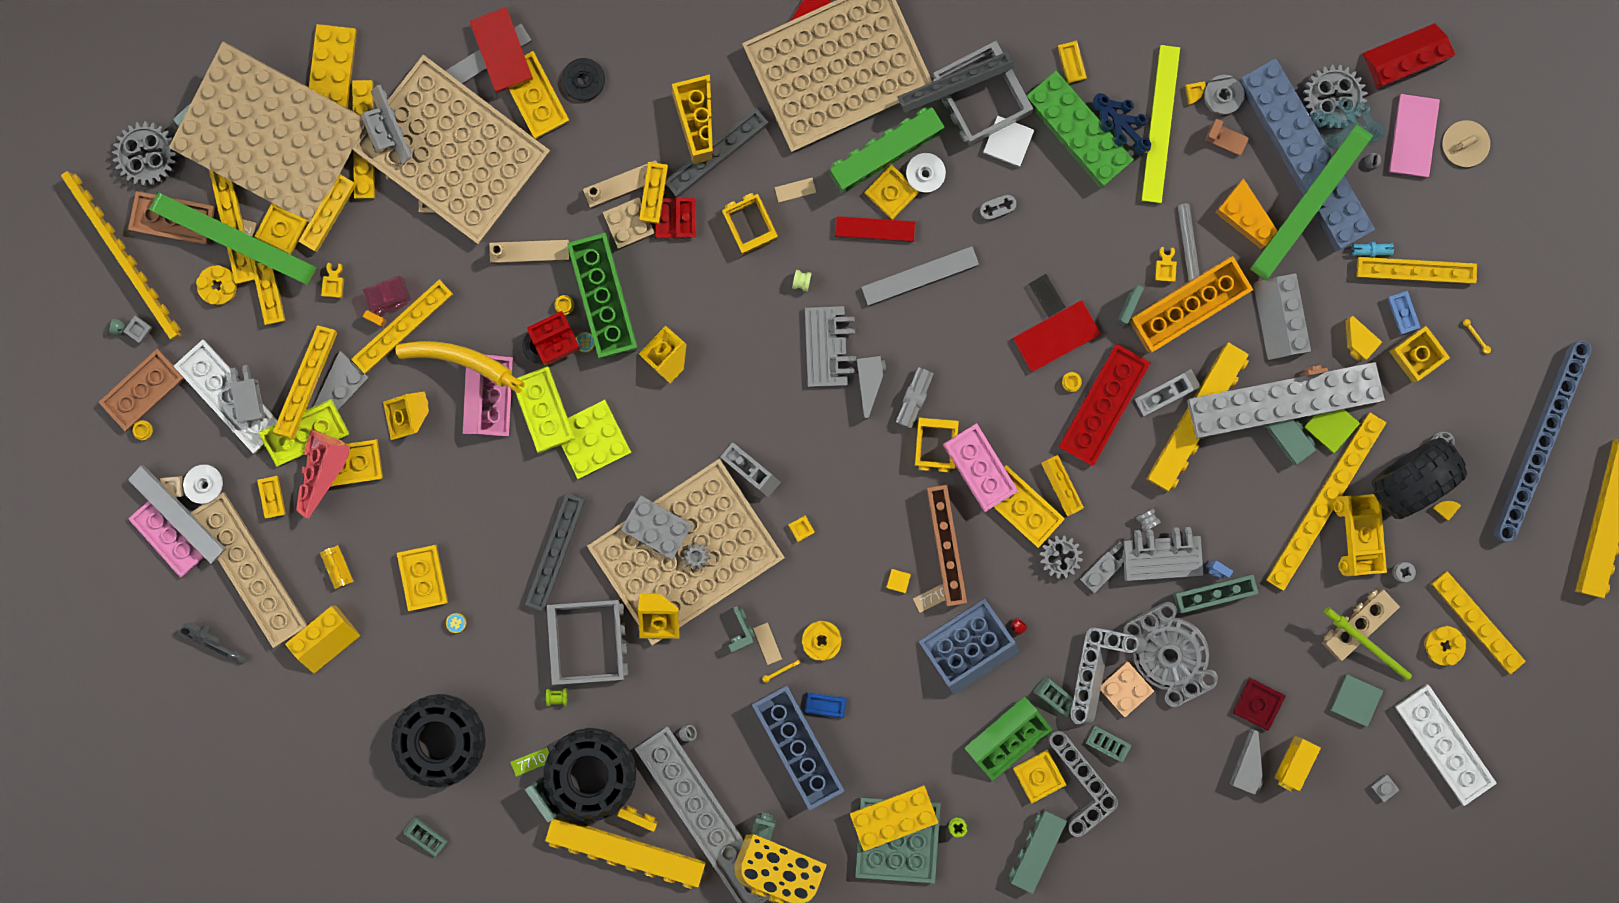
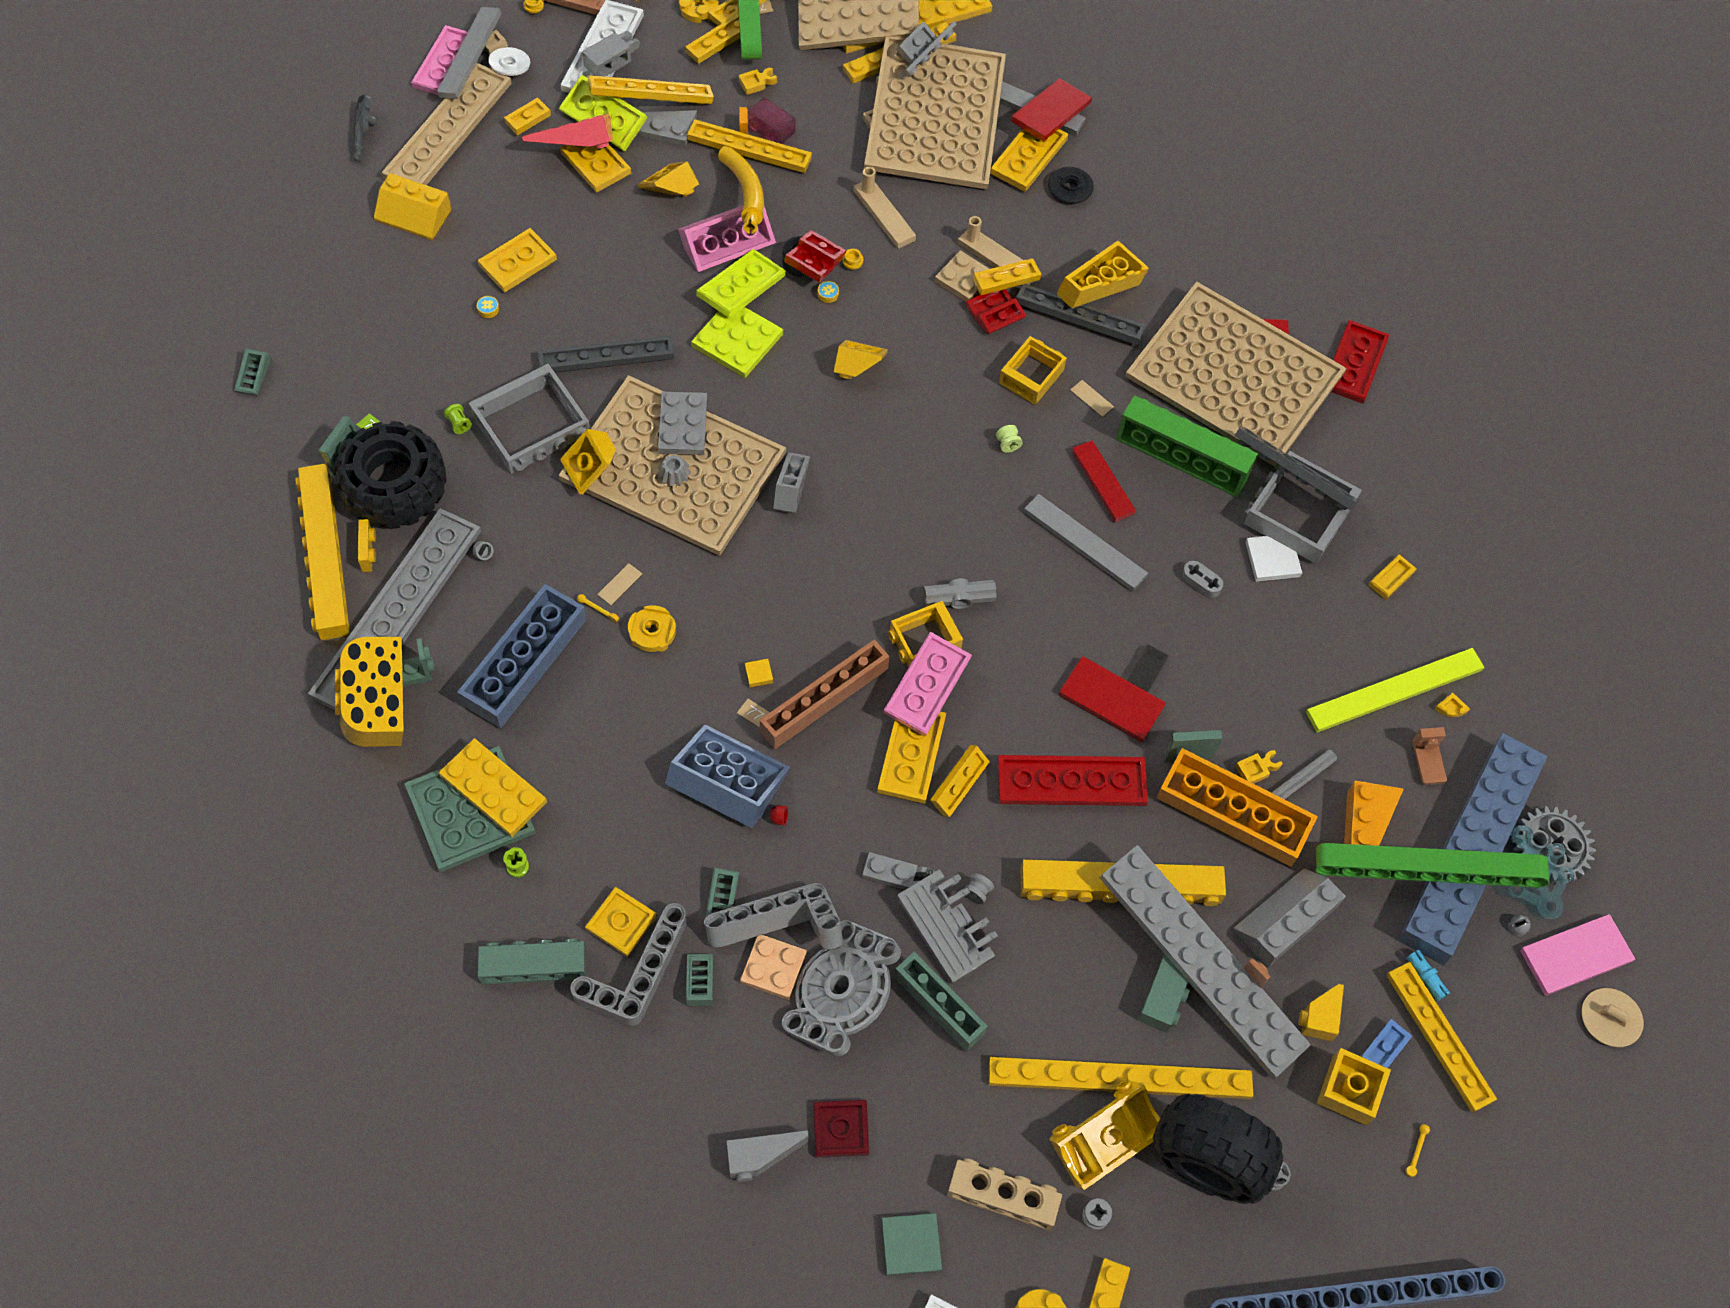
camera: 60 degrees right, 25 degrees down
(281, 229) = (779, 26): yellow plate -> none
(327, 213) = (816, 50): yellow plate -> none
(336, 567) = (489, 191): yellow hinge -> none
(468, 733) = (360, 356): black tyre -> none
(602, 296) = (881, 280): bright green brick -> none
(739, 641) = (615, 557): sand green bracket -> none
(801, 528) = (759, 557): yellow tile -> none
(824, 346) = (958, 493): light grey hinge -> none
(825, 705) = (584, 667): blue tile -> none
(870, 376) = (948, 545): light grey slope -> none
(891, 192) = (1149, 479): yellow tile -> none
(929, 163) = (1191, 488): white dish -> none
(1008, 738) = (646, 866): bright green slope -> none
(1066, 547) = (881, 832): light grey gear -> none
(1071, 382) = (1075, 736): yellow plate -> none
(1078, 129) = (1332, 612): bright green brick -> none
(1106, 107) = (1375, 619): dark blue plant -> none
(1167, 392) = (1127, 834): light grey slope -> none
(1218, 570) = (969, 987): medium blue plate -> none
(1229, 85) = (1467, 746): light grey plate -> none
(1296, 764) = (794, 1203): yellow window -> none
(1332, 428) = (1206, 1038): lime tile -> none
(1342, 623) = (994, 1155): lime bar -> none
(1408, 55) = (1652, 902): red slope -> none
(1446, 509) = (1202, 1226): yellow tile -> none

